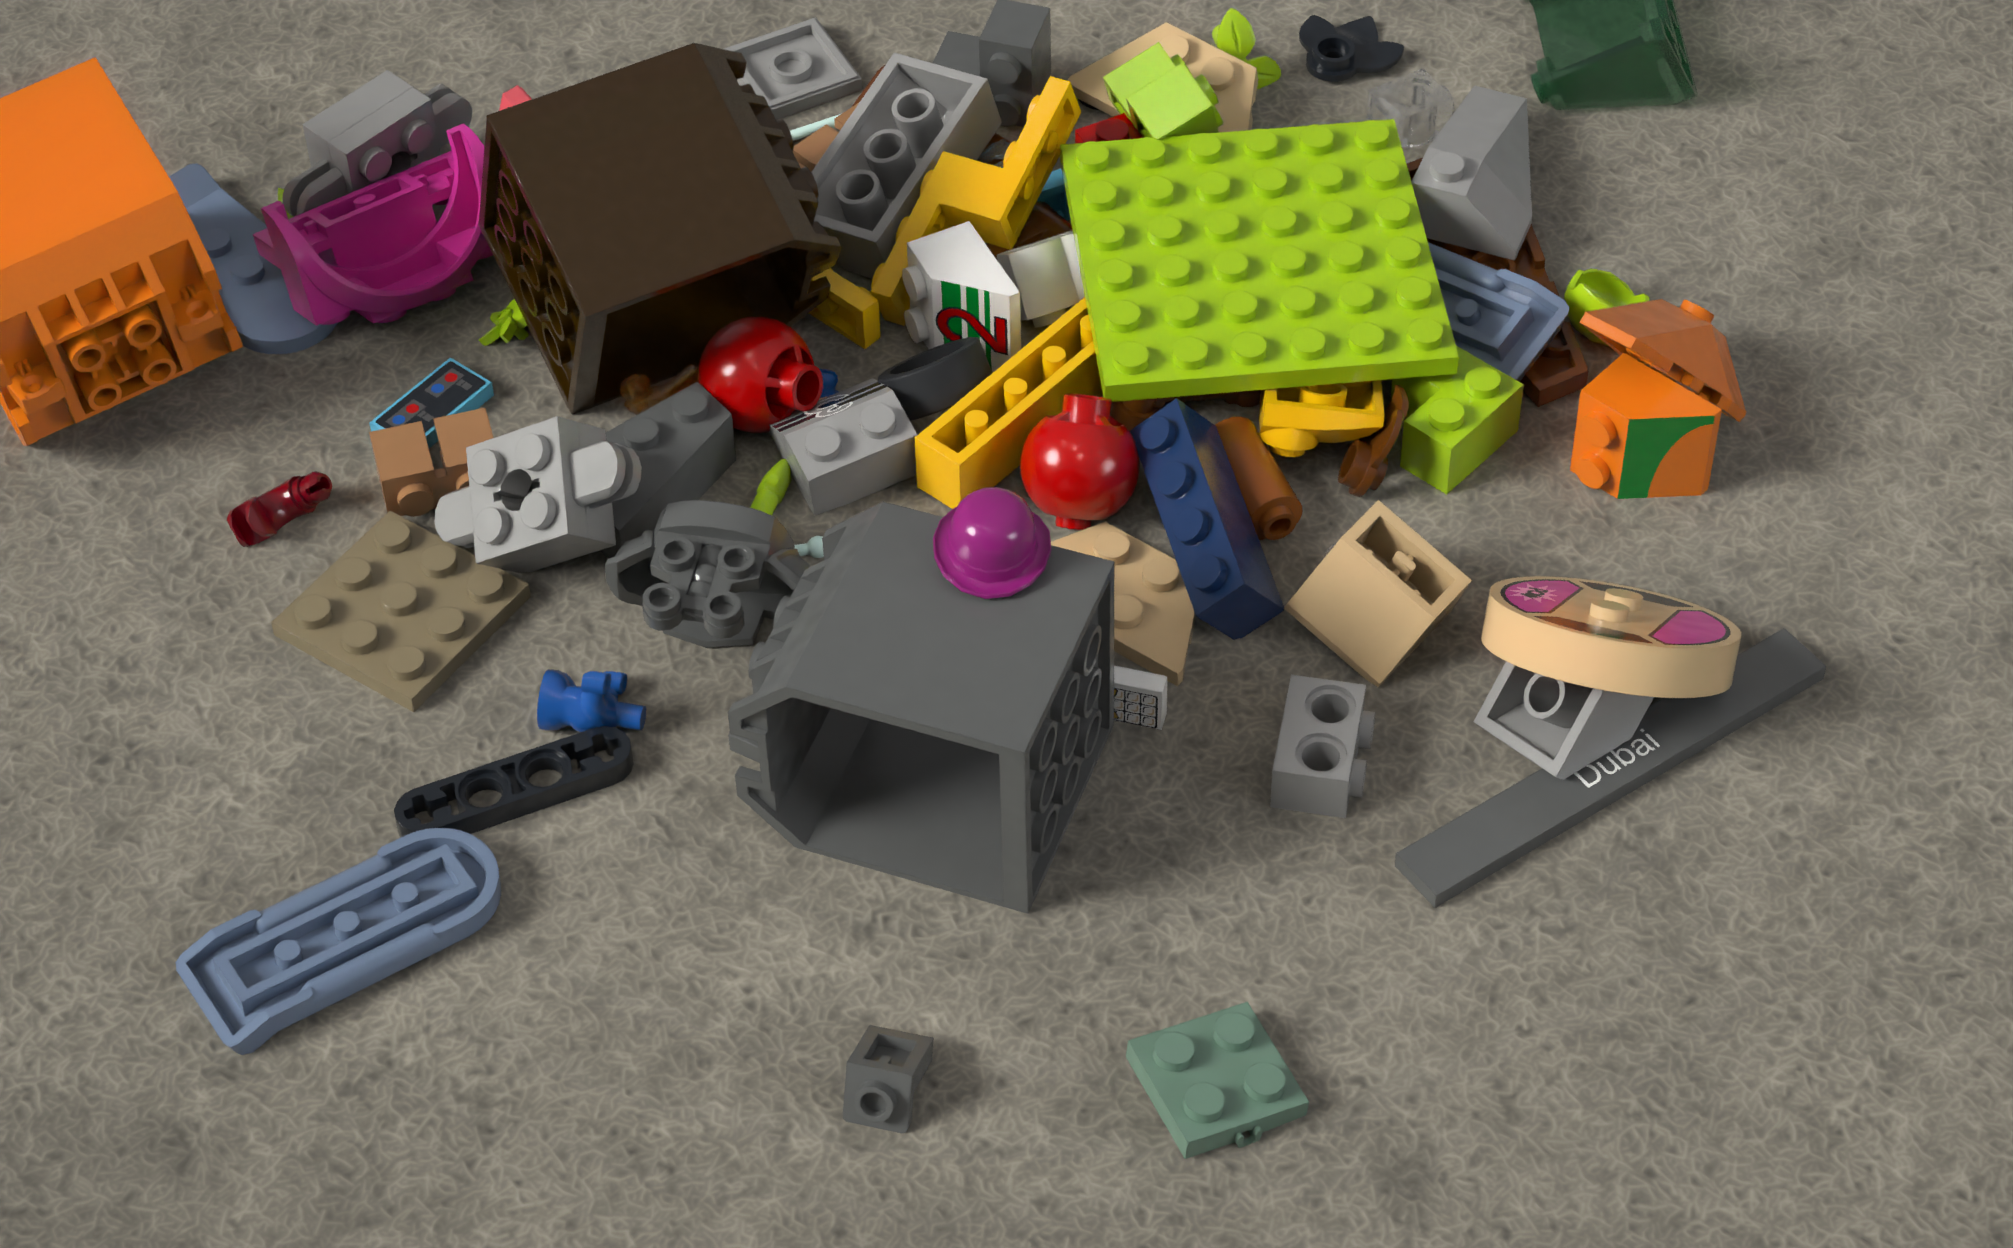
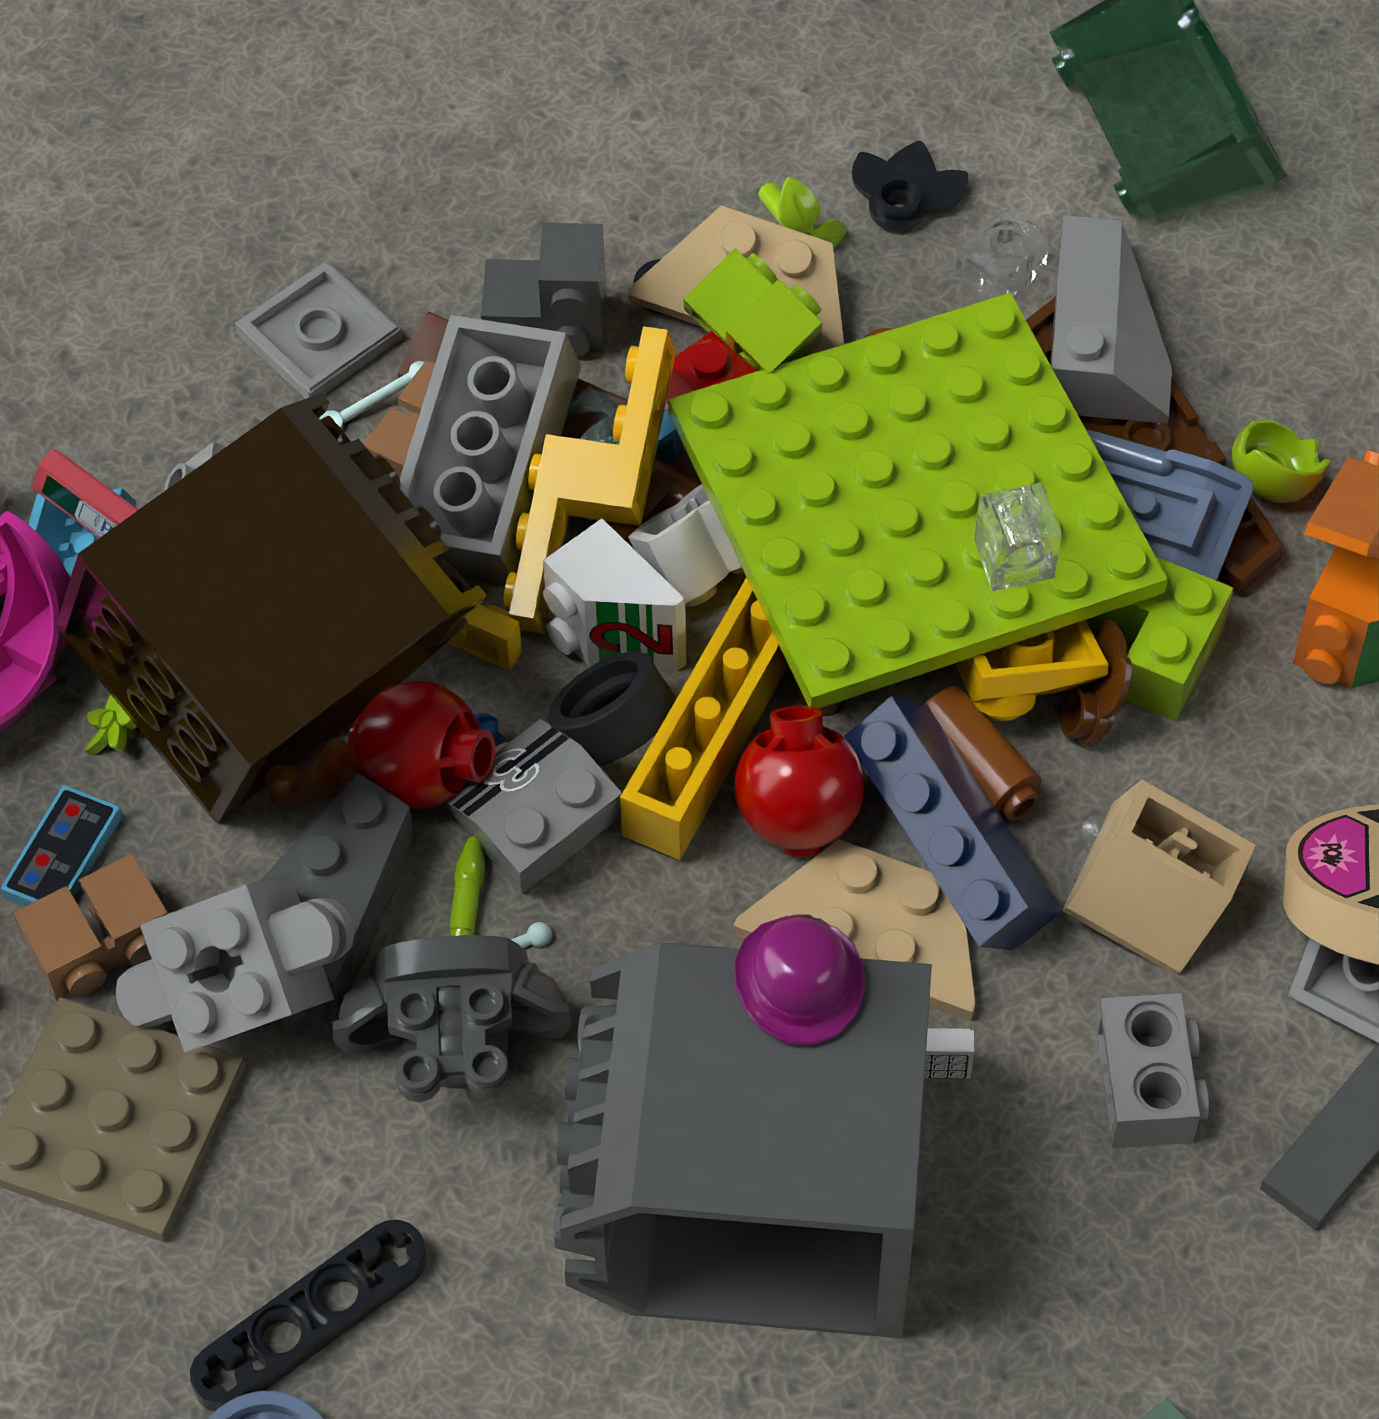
camera: 15 degrees left, 10 degrees up
(586, 705) = (360, 1198): blue piece -> none
(1324, 287) = (1017, 536): none -> clear brick

